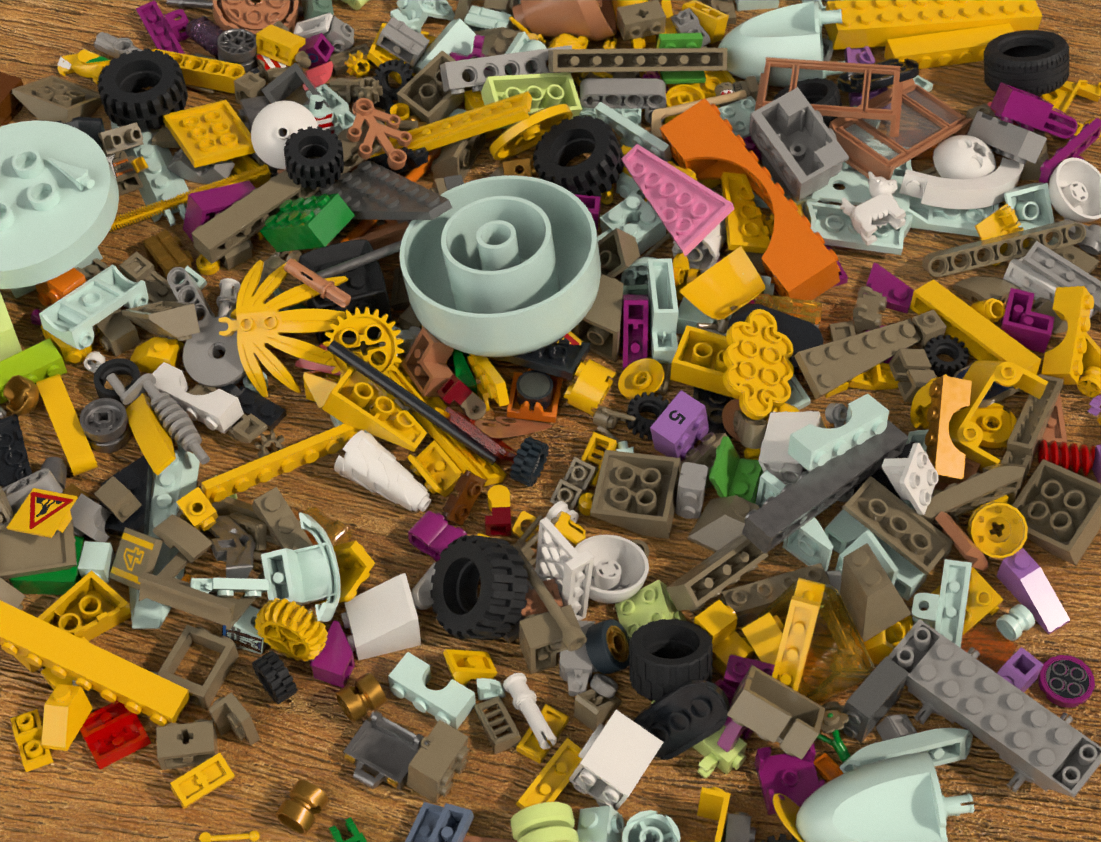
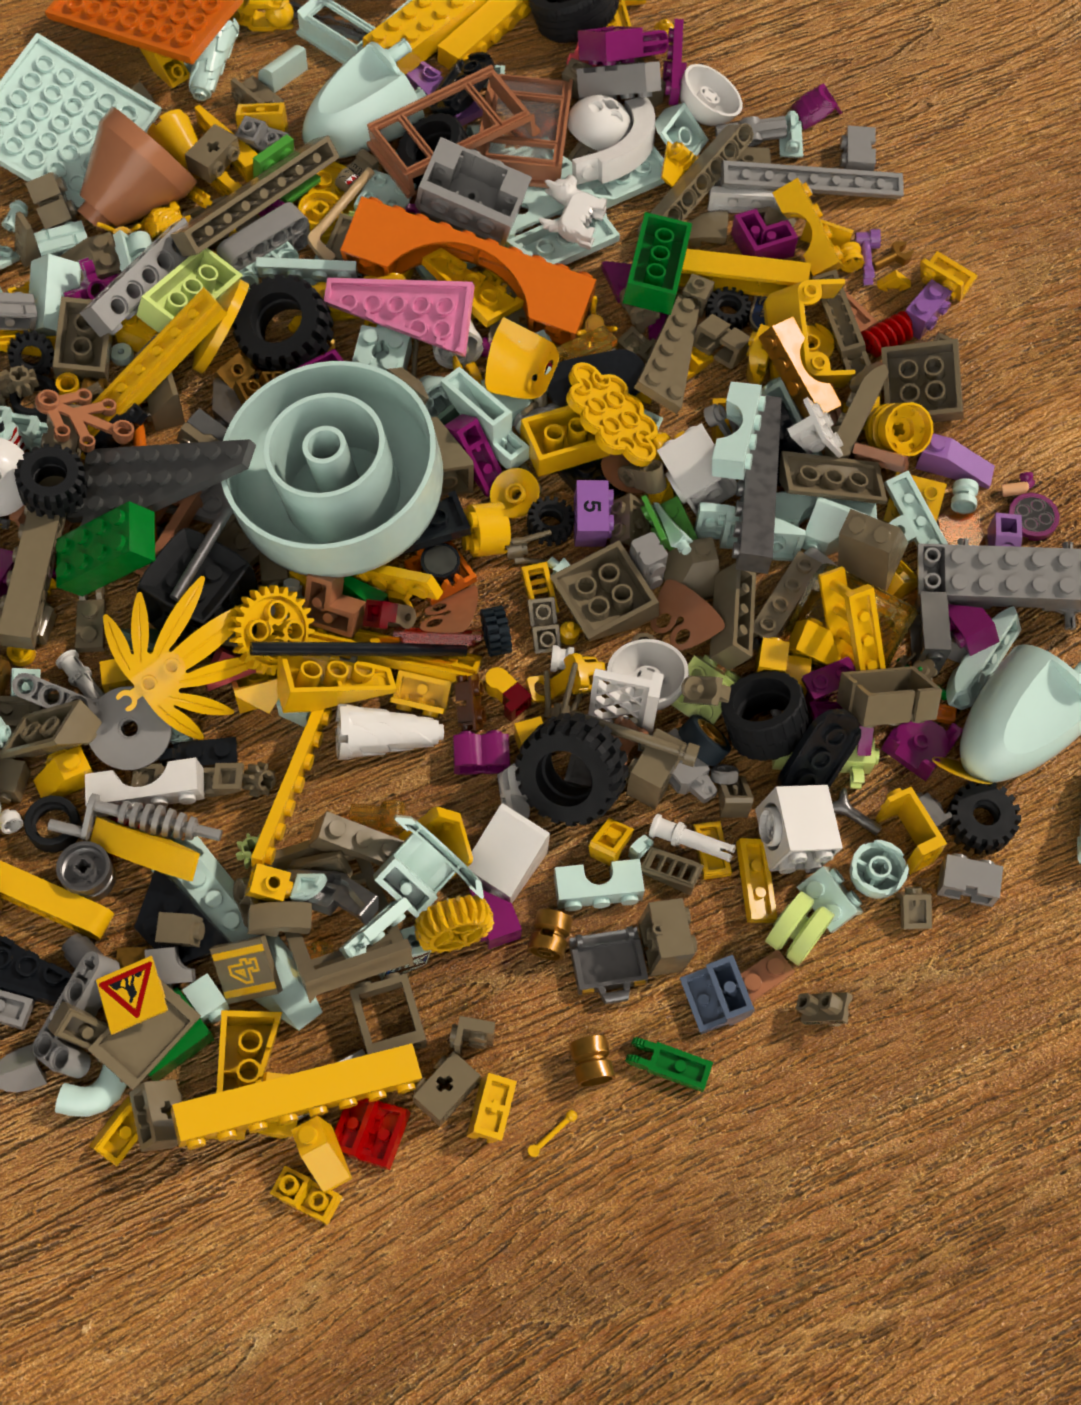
camera: 45 degrees left, 10 degrees up
(221, 531) = (307, 886): none -> light aqua tile
(274, 677) = (467, 974): black tyre -> none
(325, 288) = (192, 599): nougat axle -> none
(627, 186) = (345, 325): light aqua bracket -> none
(633, 603) = (705, 690): none -> dark tan hips
(678, 780) = (843, 807): none -> flat silver piece
(692, 541) = (698, 615): none -> nougat piece
(731, 484) = (676, 537): none -> light aqua piece
(822, 297) = (594, 321): none -> yellow plant
(903, 281) = (657, 263): none -> green brick
(910, 720) = (972, 628): none -> magenta slope
(990, 308) = (731, 243): yellow brick -> none
(1069, 648) = (1014, 489): none -> light nougat arm

